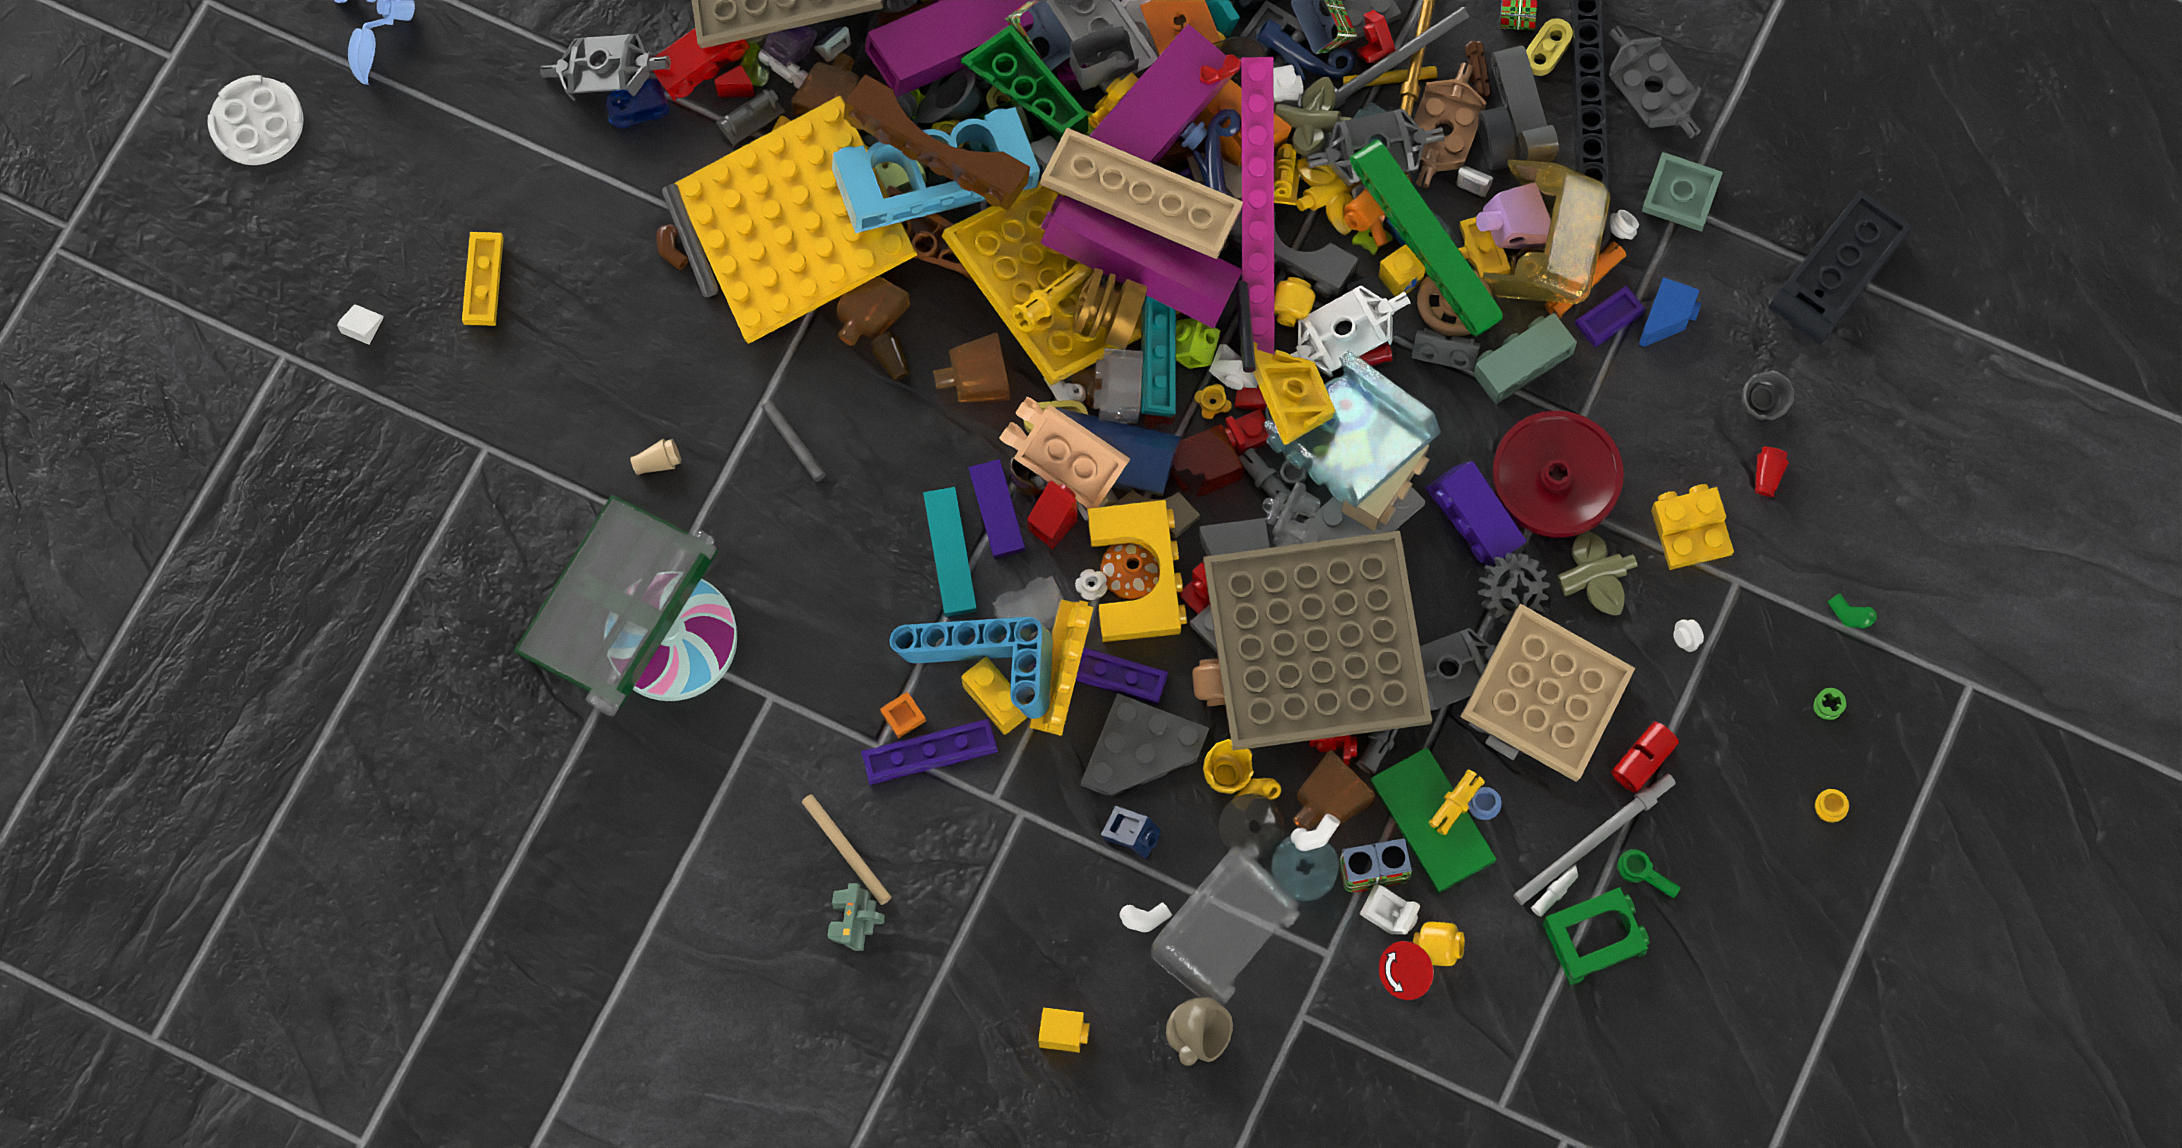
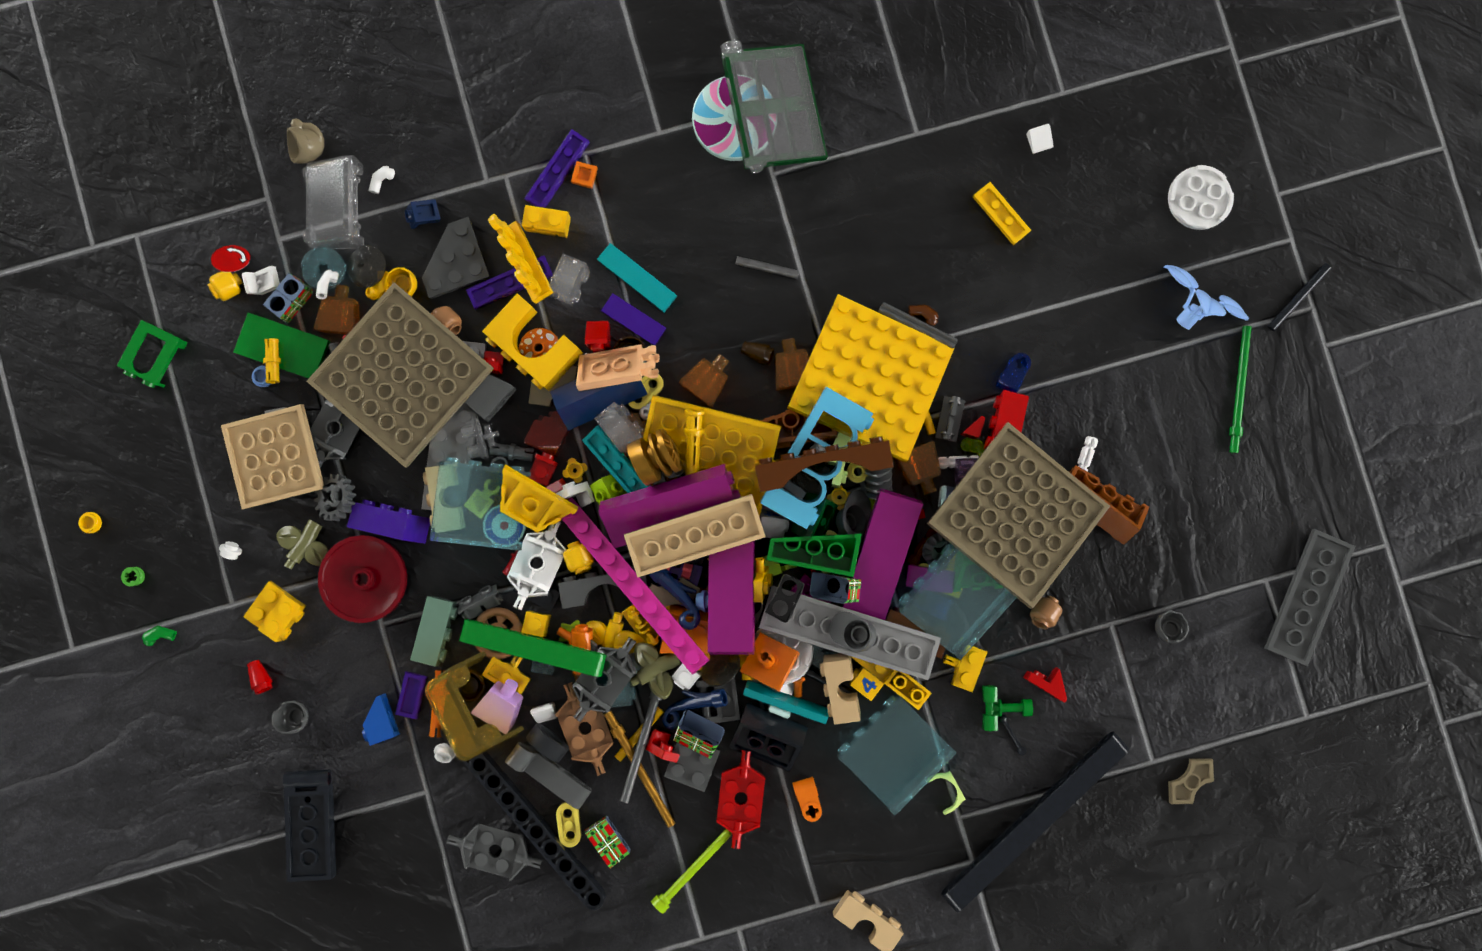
camera: 135 degrees right, 15 degrees up
(625, 67) = (1035, 379): dark grey plate -> none
(658, 457) = (824, 198): tan cone -> none
(846, 849) = (555, 89): tan bar -> none
(858, 917) = (515, 59): sand green hips -> none
(985, 645) = (566, 235): dark azure beam -> none
(1063, 1030) = (370, 89): yellow brick -> none
(1097, 590) = (556, 324): white plate -> none
(1230, 66) = (715, 632): red piece -> none
(1245, 327) = (584, 516): black bar -> none
(1479, 75) = (597, 781): reddish brown axle -> none
(1555, 891) = (193, 363): white piece -> none
(1636, 867) = (161, 407): green plate -> none
(1643, 800) = (186, 446): light grey bar -> none
(1645, 757) = (200, 466): red pin -> none
(1682, 191) = (429, 799): sand green plate -> none

